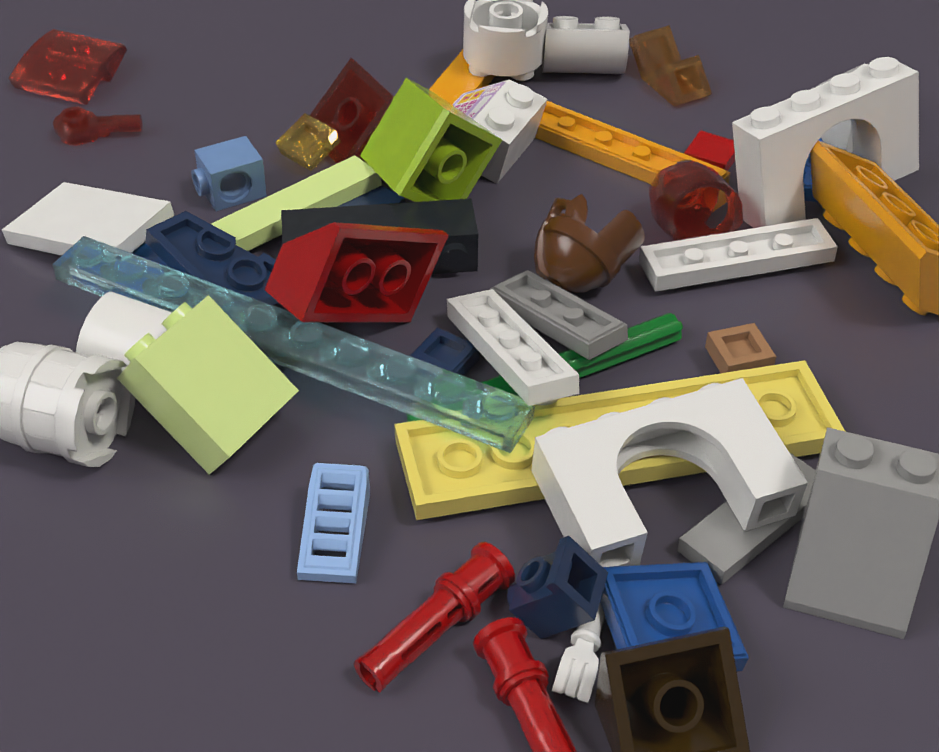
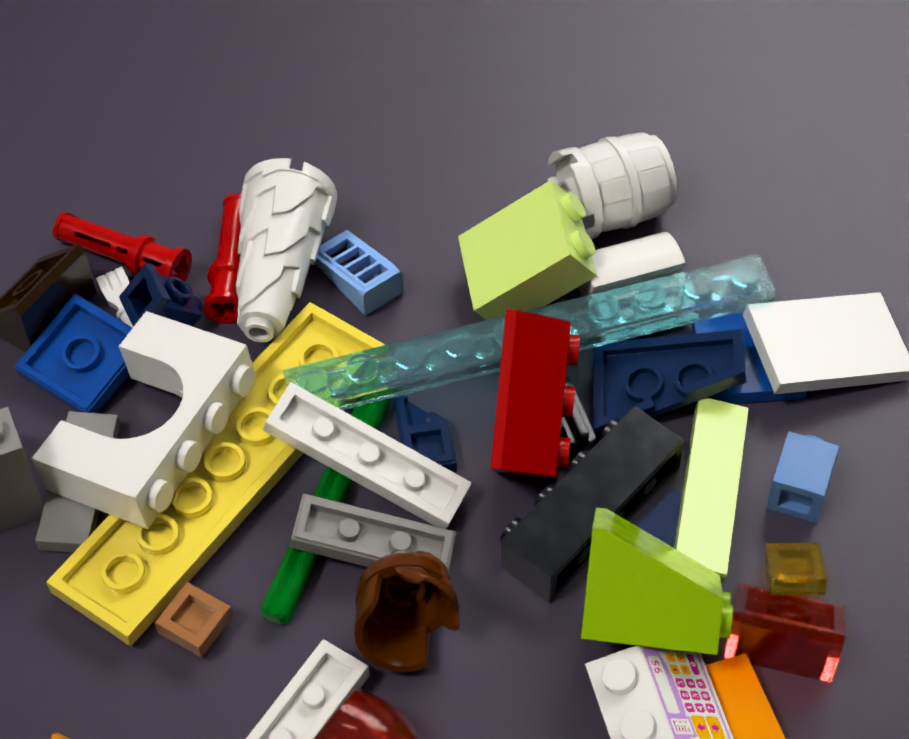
camera: 140 degrees right, 10 degrees up
(378, 563) = (279, 238): none -> white cone

